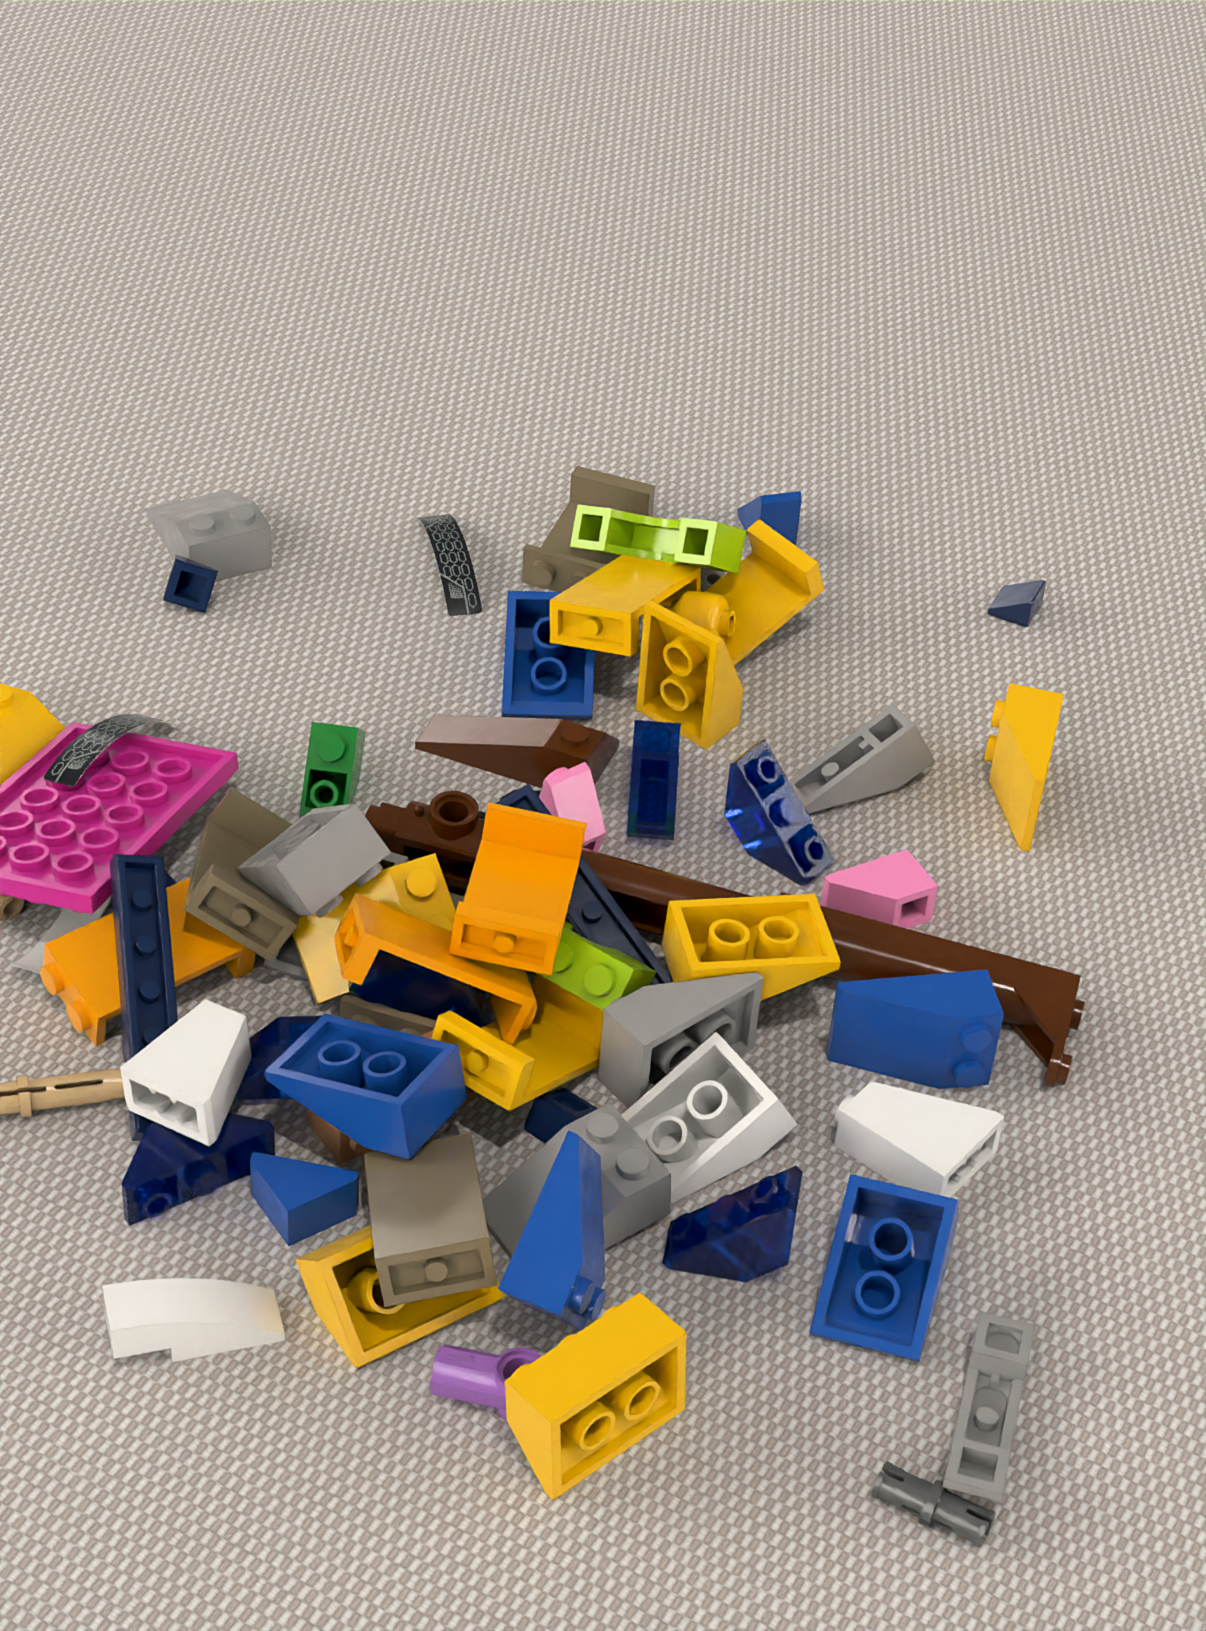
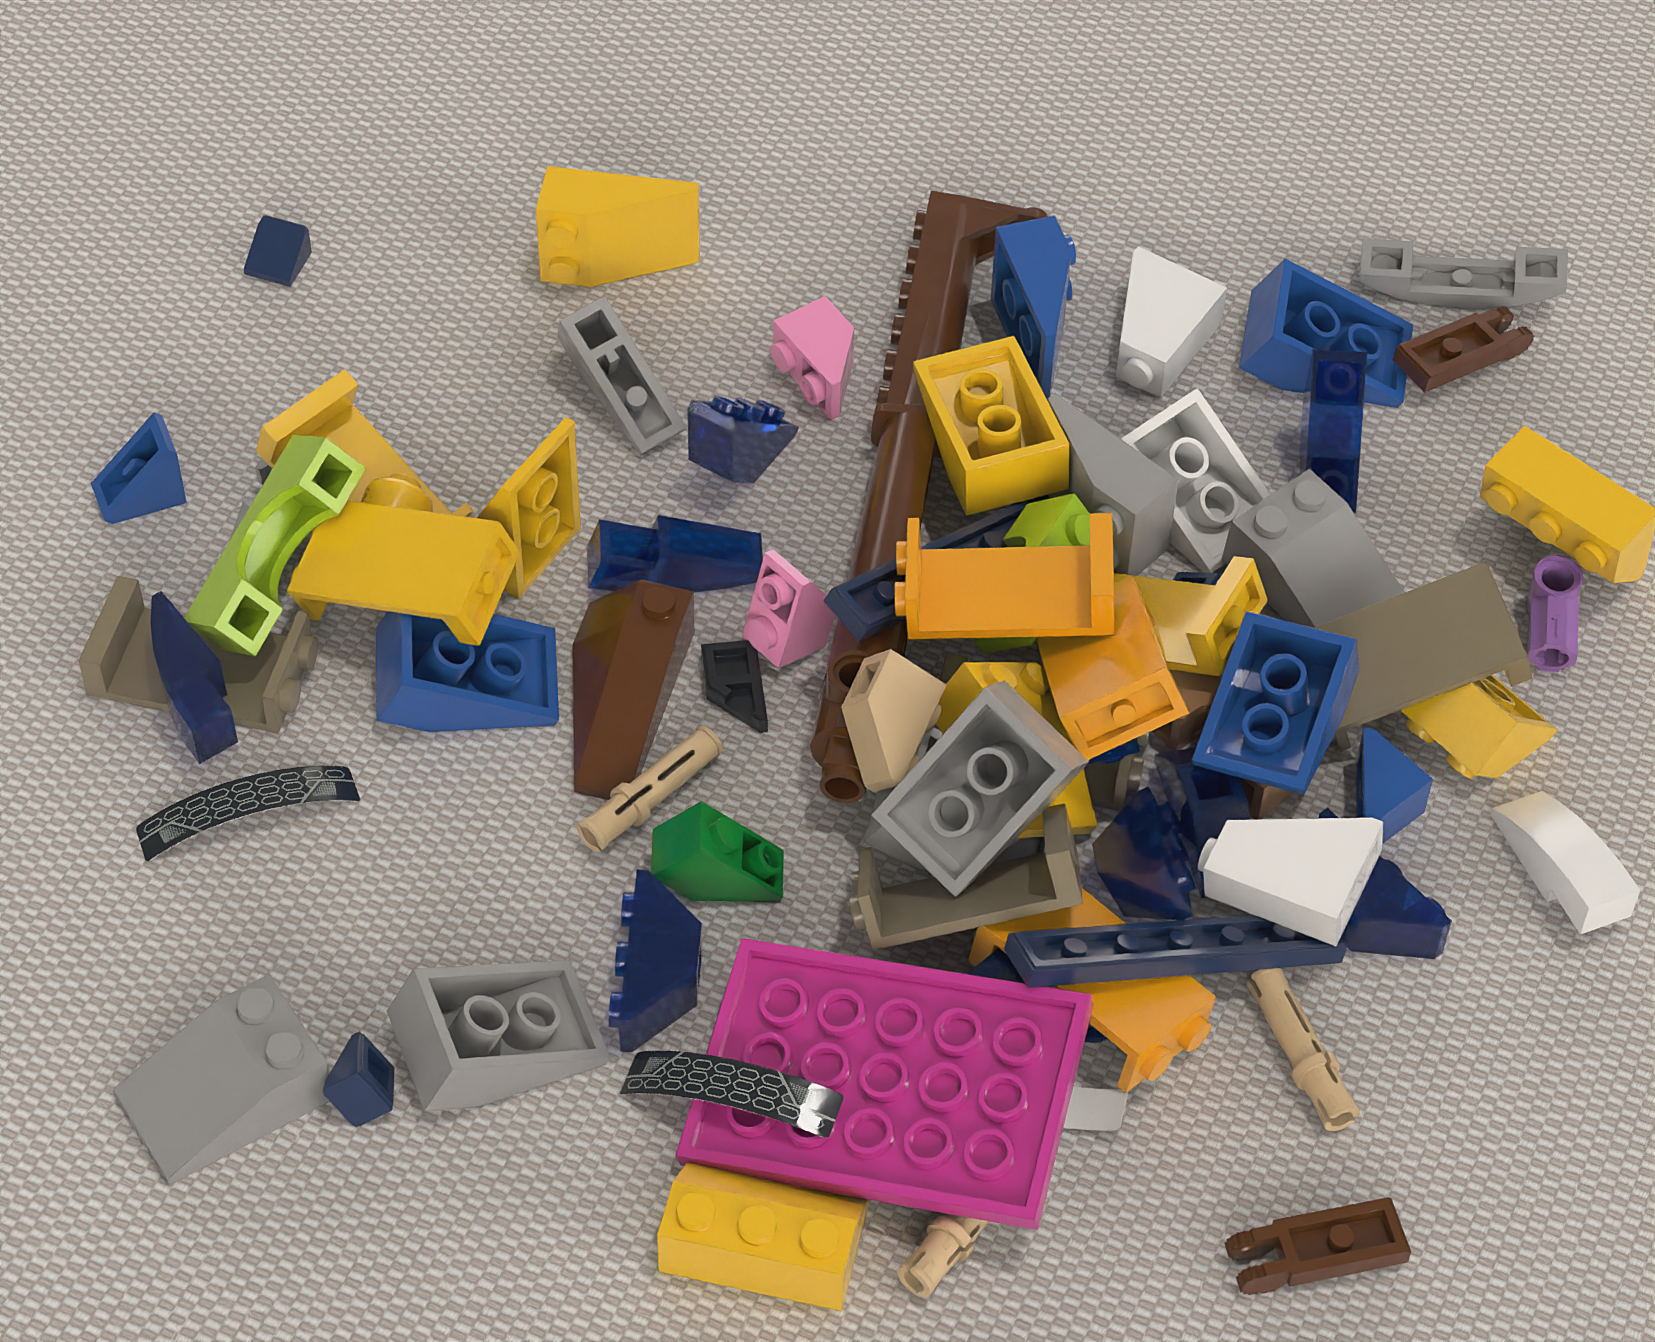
camera: 95 degrees left, 10 degrees up
(209, 643) = (493, 1031): none -> light grey slope
(242, 988) = (1145, 860): none -> clear blue slope
(255, 729) = (657, 963): none -> clear blue slope
(404, 736) = (605, 825): none -> tan pin
(406, 813) = (888, 715): none -> tan slope
(548, 518) = (191, 682): none -> clear blue slope
(561, 1250) = (1420, 530): blue slope -> none
(874, 1386) = (1461, 348): none -> reddish brown hinge
(933, 1504) = (1563, 315): dark grey pin -> none

